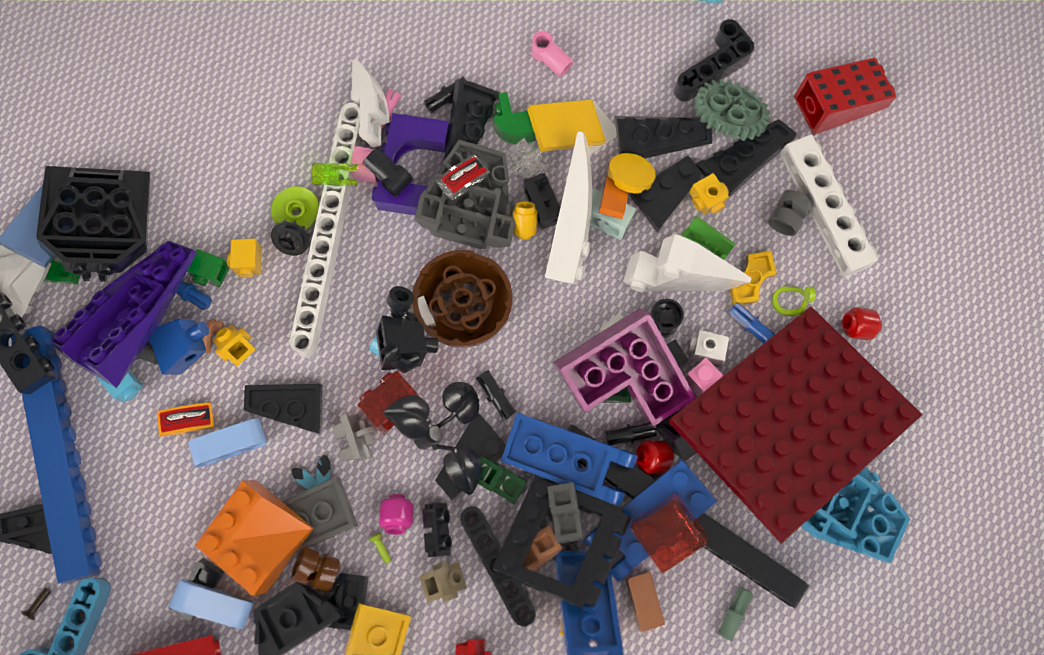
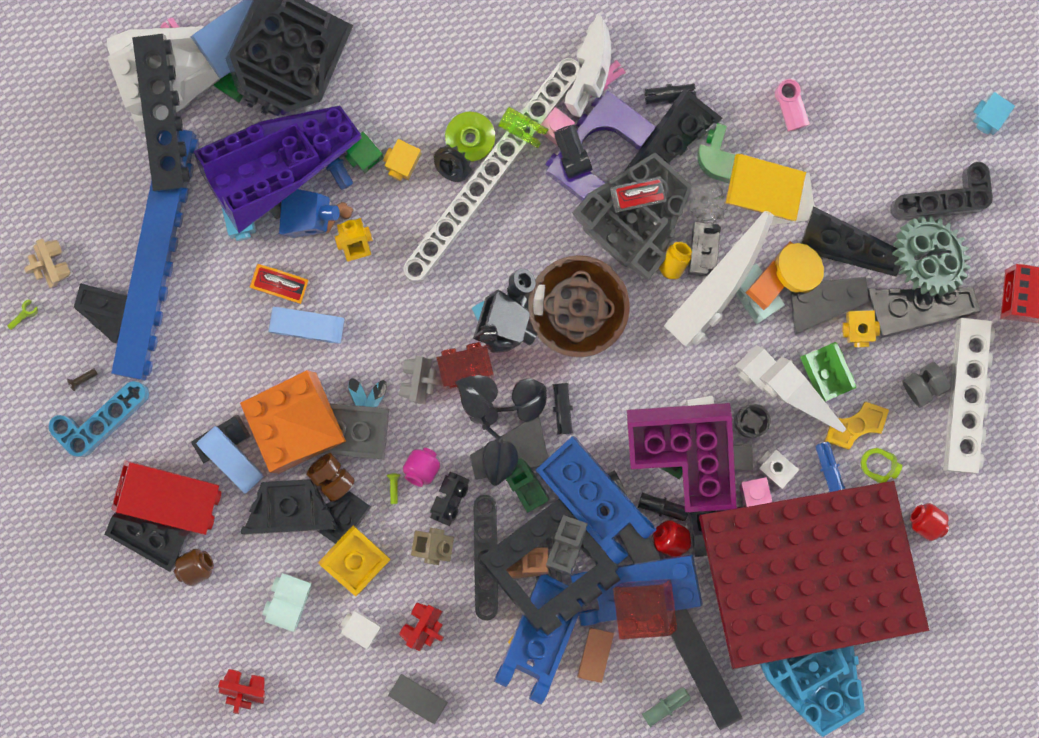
camera: 30 degrees right, 10 degrees up
(287, 403) = (374, 317): black wing -> none

